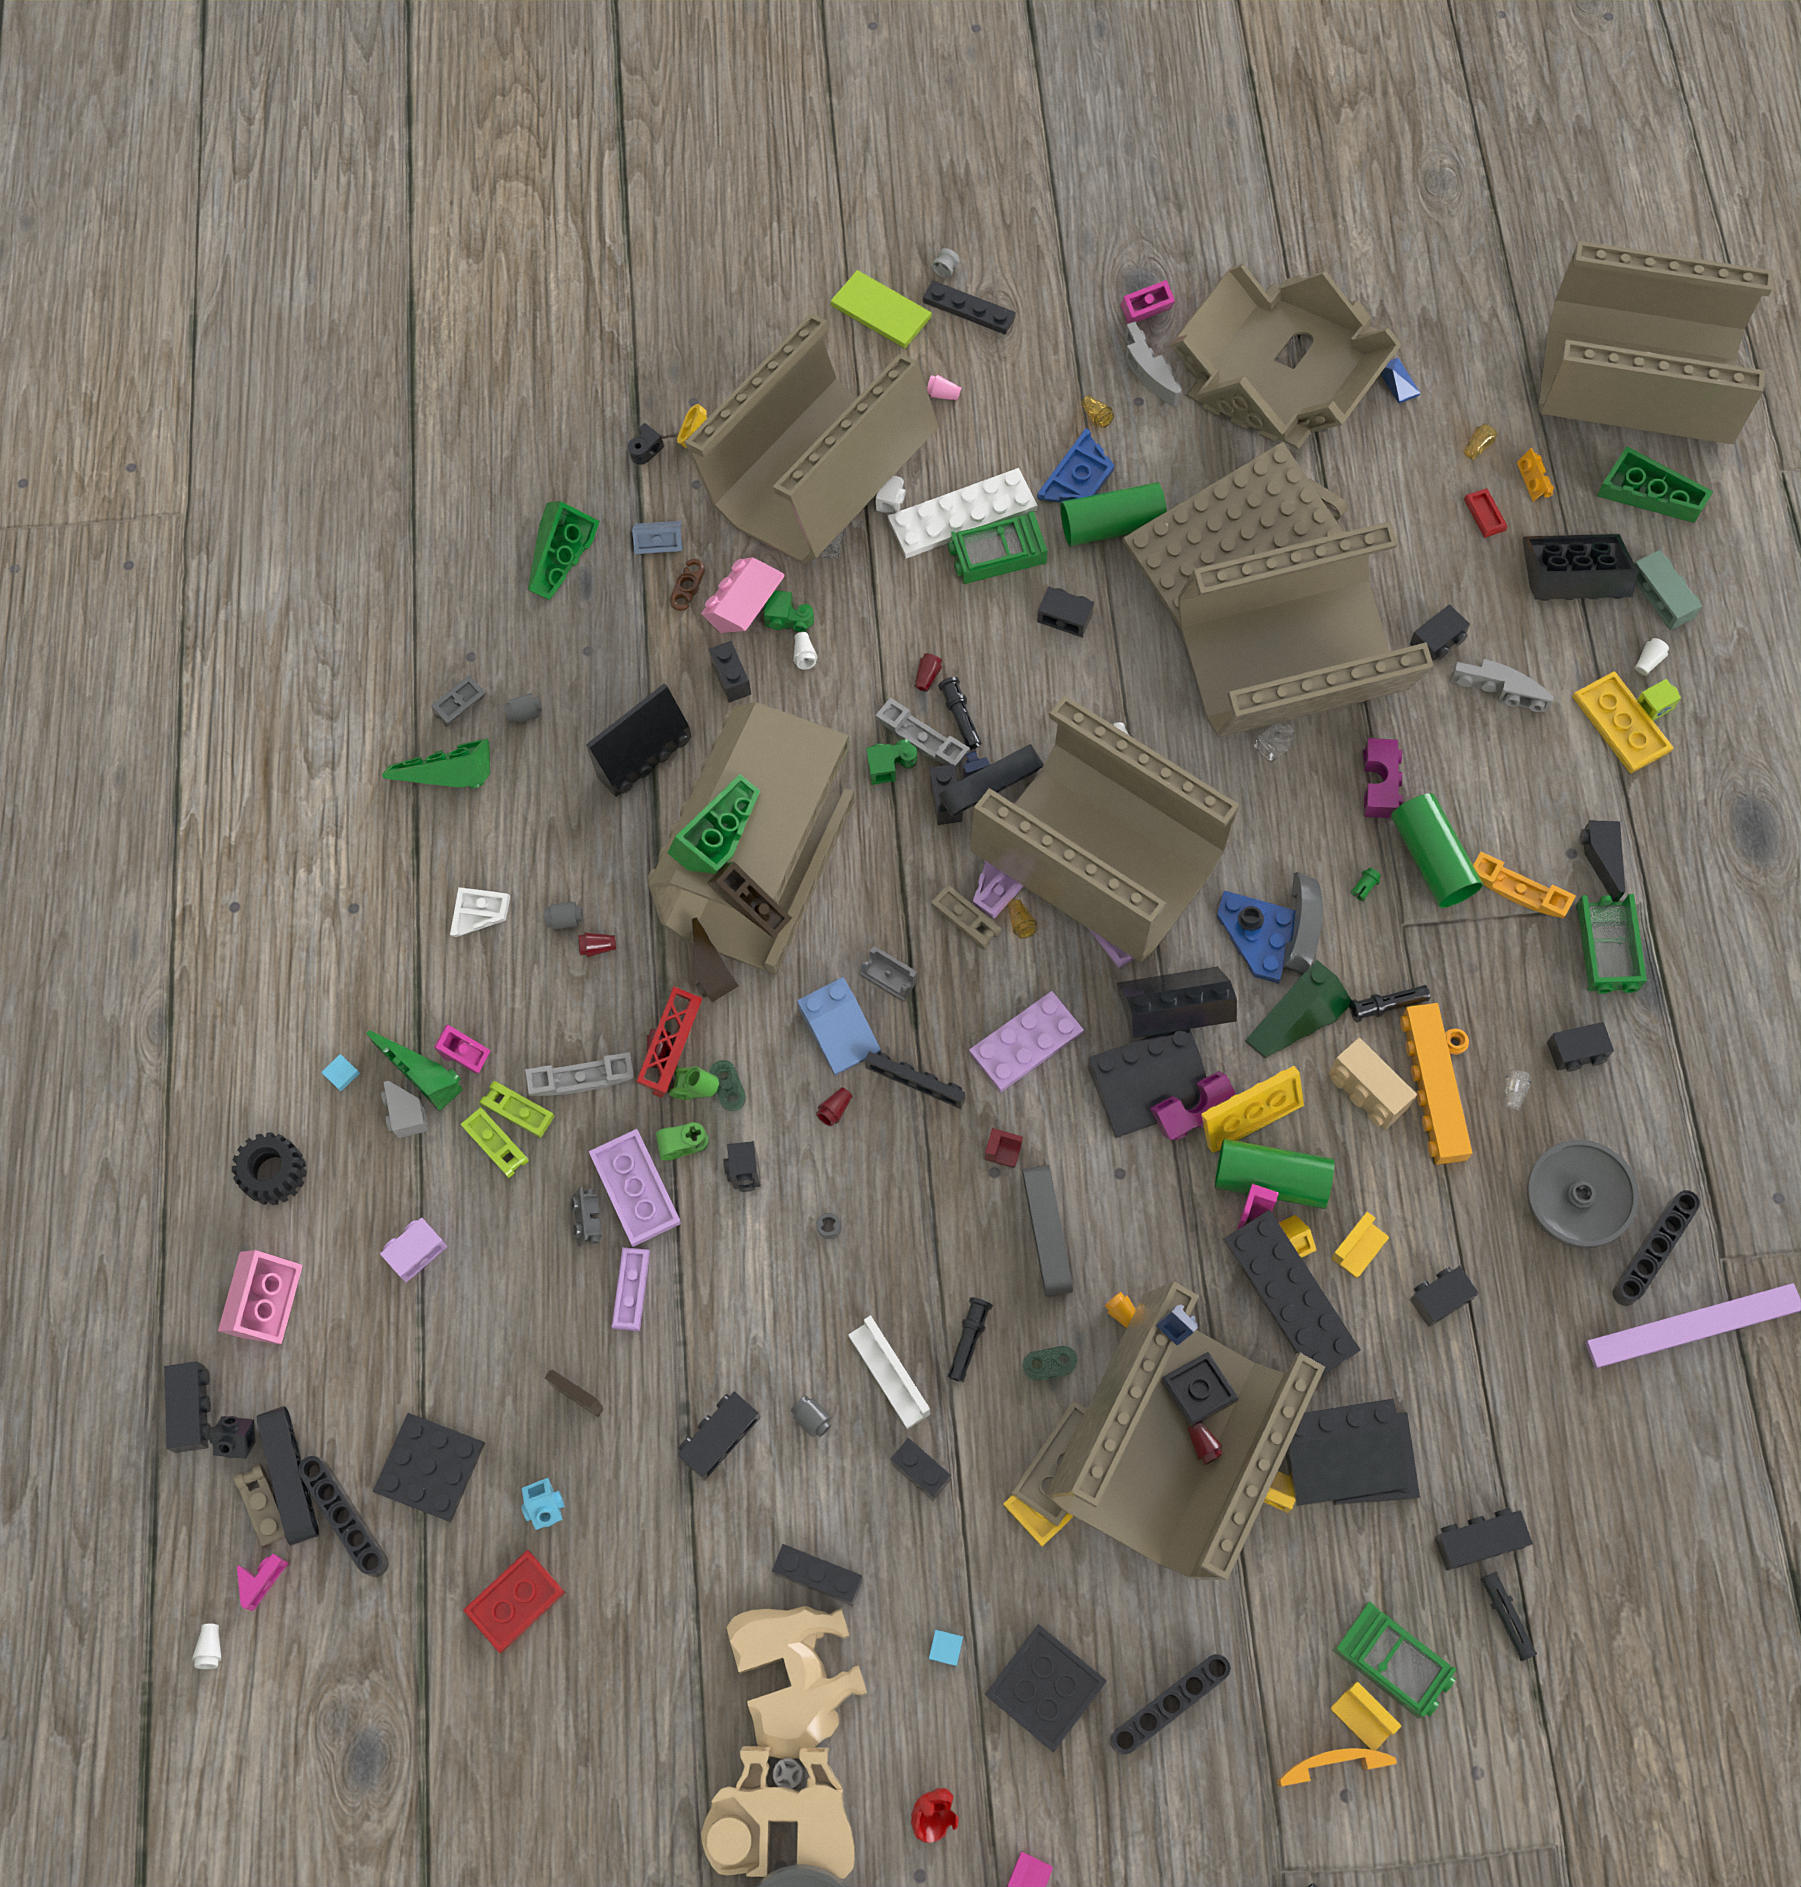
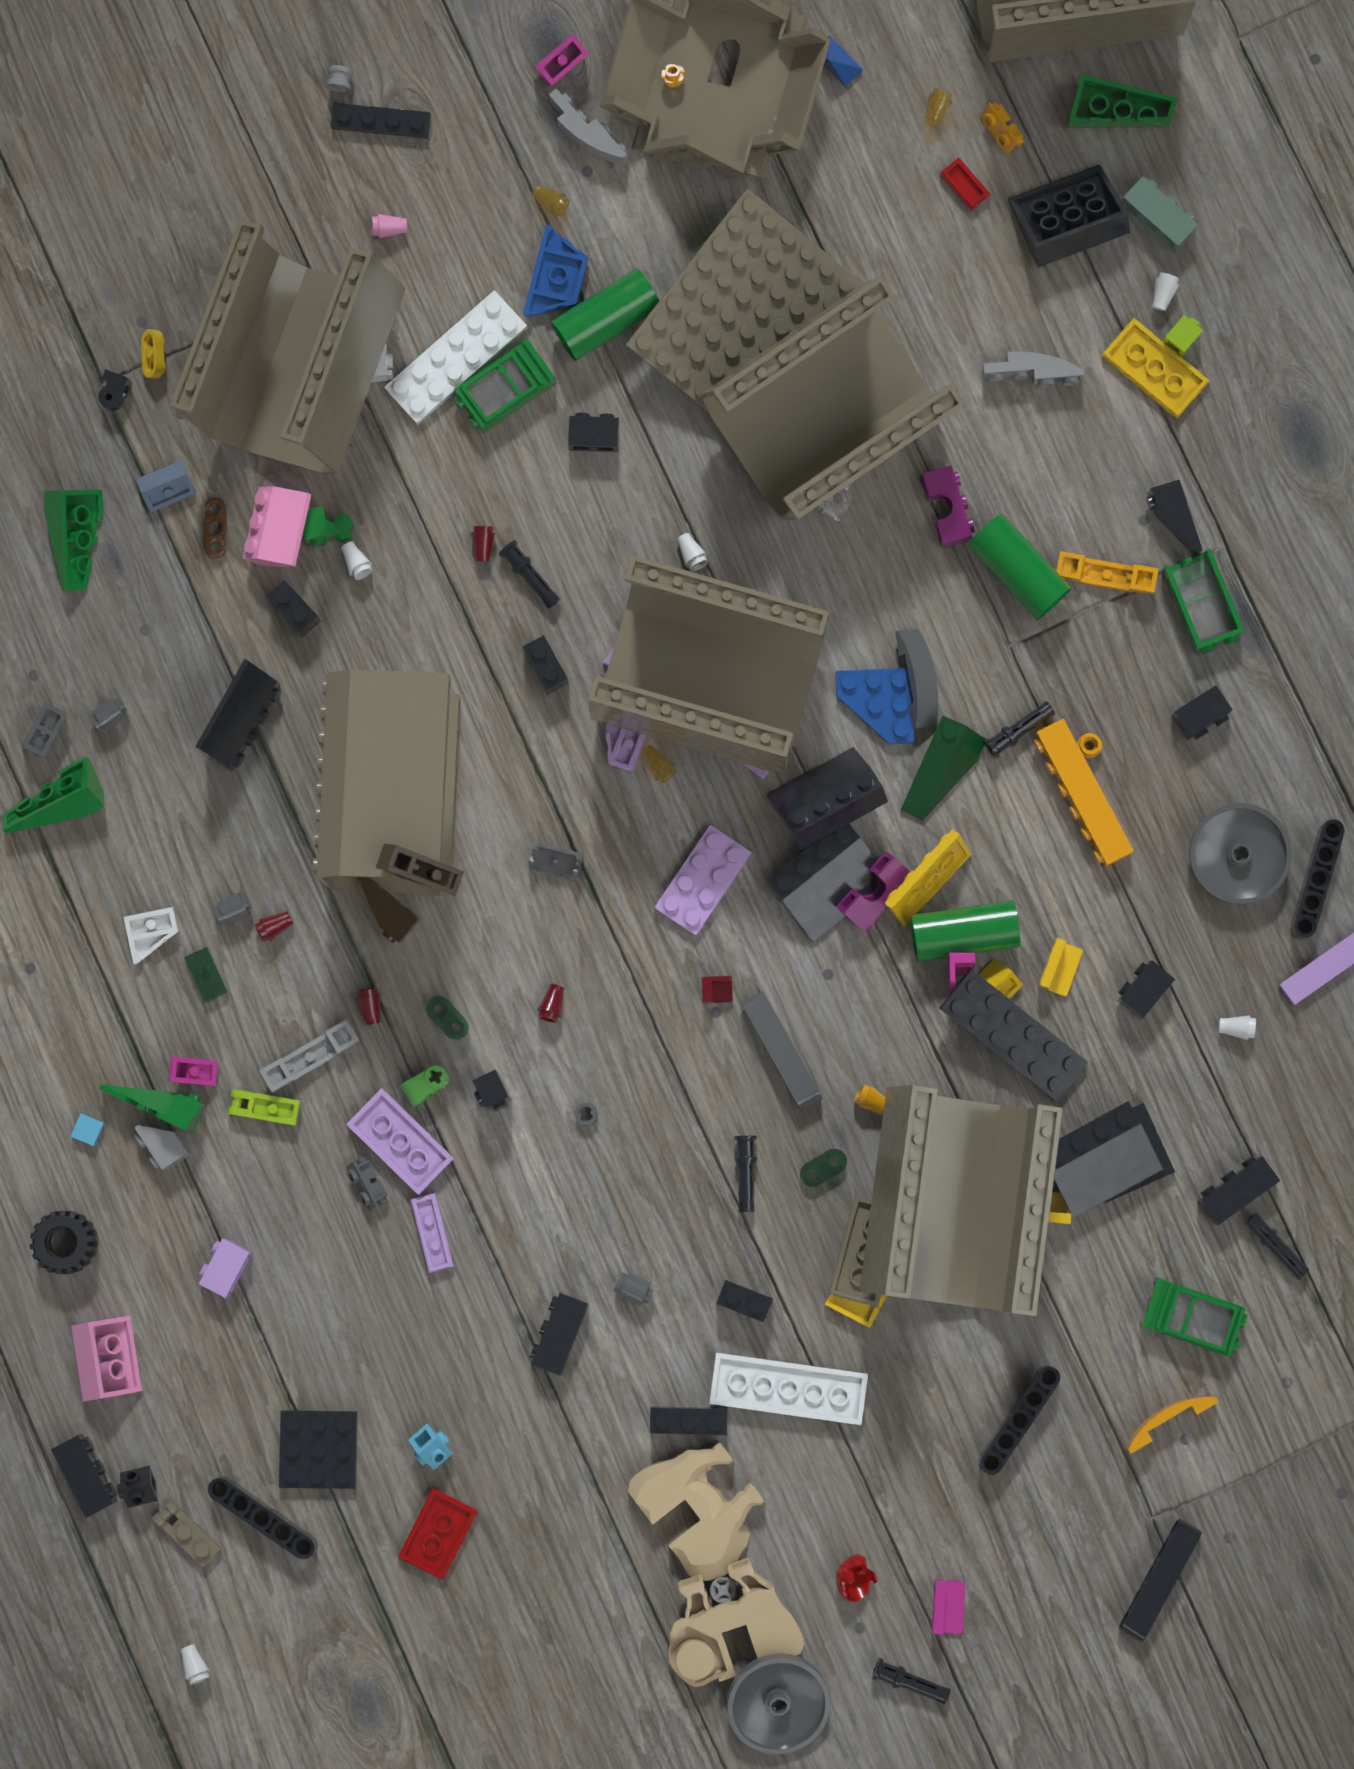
camera: 15 degrees left, 15 degrees up
(254, 1587) = (212, 1602): dark pink slope -> none
(283, 1465) = (195, 1498): black beam -> none
(494, 1141) = (256, 1144): lime plate -> none
(514, 968) = (206, 975): none -> clear green plate
(574, 1392) = (421, 1344): dark brown tile -> none
(677, 1045) = (386, 997): red fence -> none
(693, 1083) = (417, 1028): bright green piece -> none
(715, 832) = (364, 820): green wedge -> none
(838, 1025) = (528, 927): medium blue slope -> none
(881, 309) = (292, 152): lime tile -> none
(884, 758) = (473, 648): green brick -> none
(889, 1373) = (687, 1227): white fence -> none
(906, 1075) = (625, 953): black plate -> none
(924, 738) = (501, 611): light grey slope -> none
(935, 1580) = (788, 1388): none -> white plate
(946, 1648) = (817, 1440): medium azure tile -> none
(965, 916) = (605, 779): dark tan plate -> none
(974, 764) = (564, 629): dark blue tile -> none
(995, 776) = (584, 639): black beam -> none
(1045, 1688) = (911, 1443): black plate -> none
(1177, 1325) = (928, 1124): dark blue tile -> none
(1199, 1389) = (961, 1149): black tile -> none
(1204, 1443) = (979, 1193): dark red cone -> none
(1244, 344) = (670, 79): none -> light orange plate
(1251, 918) = (869, 694): black plate -> none
(1333, 502) = (809, 227): dark tan piece -> none
(1365, 1716) = (1182, 1371): yellow panel -> none
(1369, 878) = (964, 619): green pin -> none
(1371, 1084) = (1026, 817): tan brick -> none
(1442, 632) = (958, 335): black brick -> none
(1516, 1087) = (1156, 773): clear cone -> none
(1531, 1369) = (1240, 1027): none -> white cone

